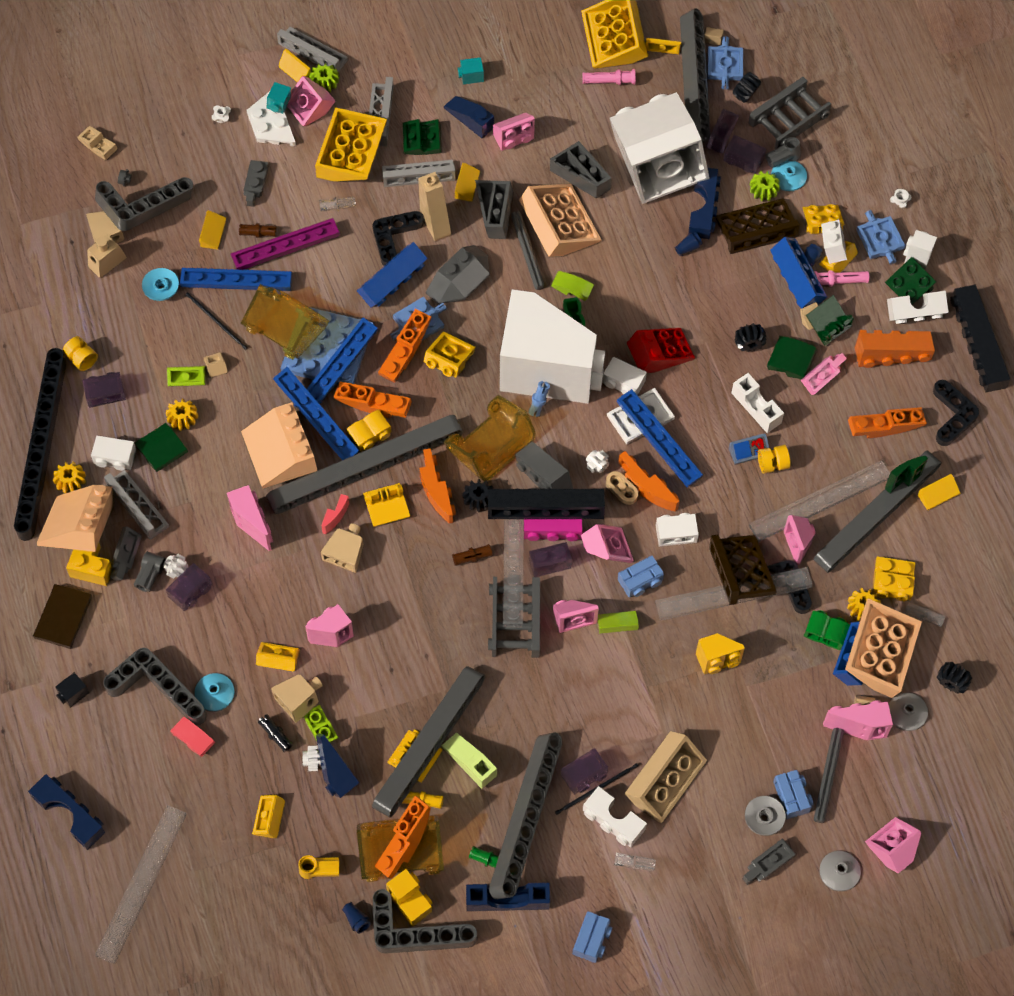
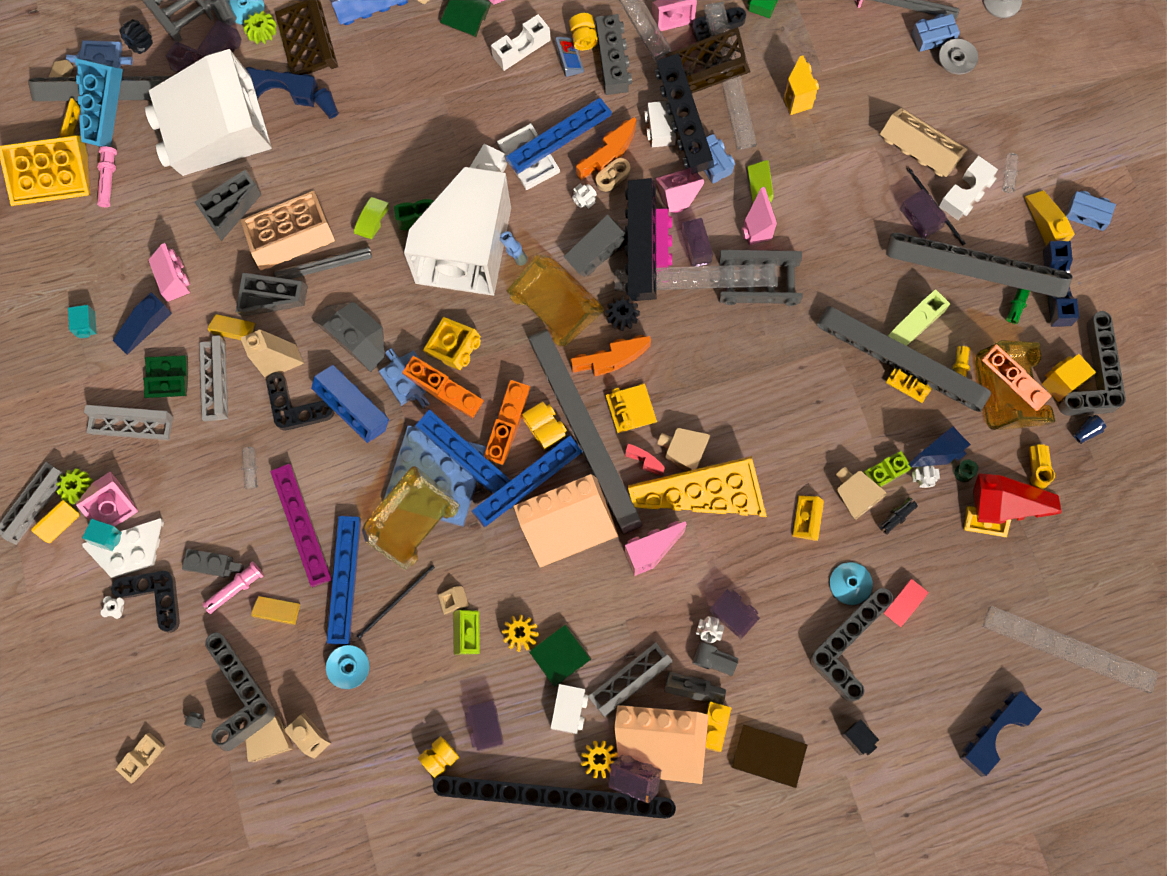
camera: 85 degrees left, 10 degrees up
(48, 499) = (634, 778): none -> clear purple brick
(232, 146) = (159, 591): none -> black beam
(237, 202) = (241, 581): none -> bright pink pin
(257, 230) = (278, 558): reddish brown pin -> none
(285, 828) = (1006, 499): none -> red wedge
(304, 566) = (710, 489): none -> yellow wing
(316, 803) = (963, 476): none -> clear green bush
(330, 628) = (783, 457): bright pink slope -> none
(349, 146) = (176, 451): yellow slope -> none
(472, 555) = (689, 321): reddish brown pin -> none
(582, 895) = (1049, 218): none -> yellow slope
(659, 349) = (453, 134): red slope -> none
(674, 60) = (98, 100): none -> dark azure wedge
(674, 549) = (672, 67): none -> black brick
(750, 337) = (444, 45): black gear -> none
(751, 486) = (612, 55): none -> dark grey brick
(769, 862) = (1003, 56): dark grey hinge -> none

